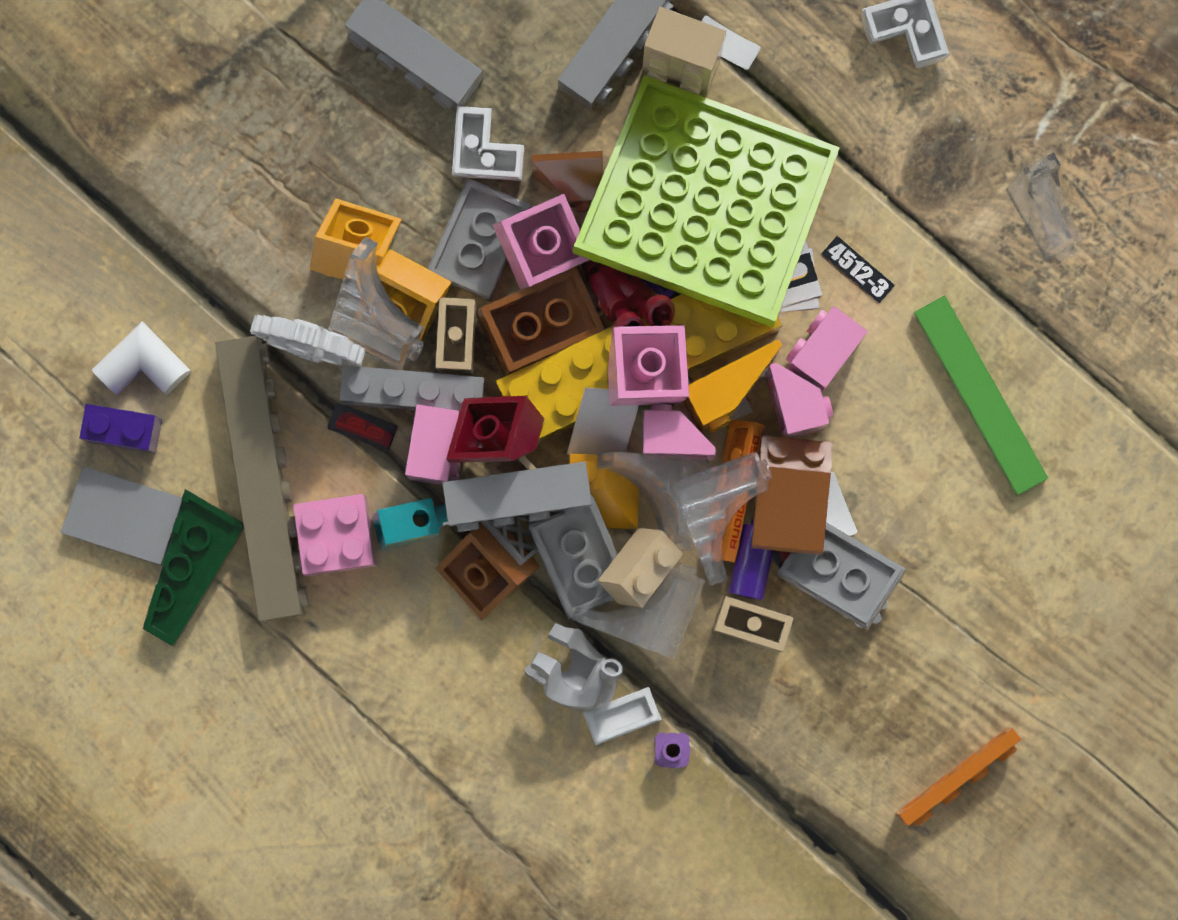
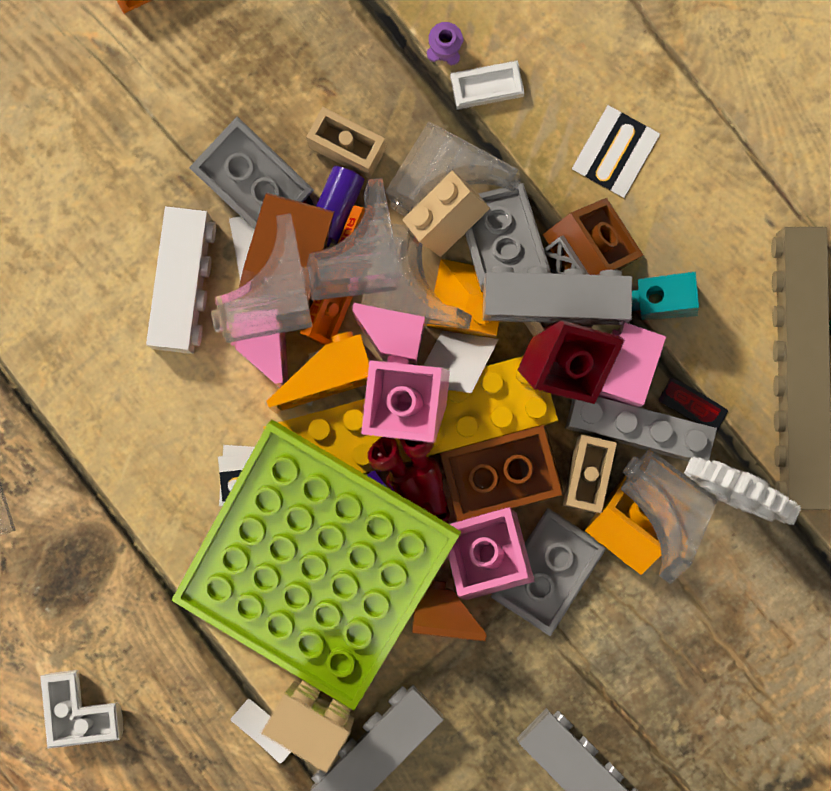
camera: 170 degrees left, 0 degrees up
(335, 535) = (738, 299): bright pink brick -> none
(342, 233) = (679, 604): light orange slope -> none
(475, 154) = (539, 657): white brick -> none
(479, 671) = (616, 151): none -> sticker
(589, 680) = (523, 113): light grey piece -> none
(791, 442) = (272, 300): none -> clear arch
(827, 349) = (224, 395): bright pink brick -> none
(858, 269) = (177, 476): black sticker -> none
(893, 458) = (180, 280): none -> white brick
(980, 395) = (82, 330): bright green tile -> none

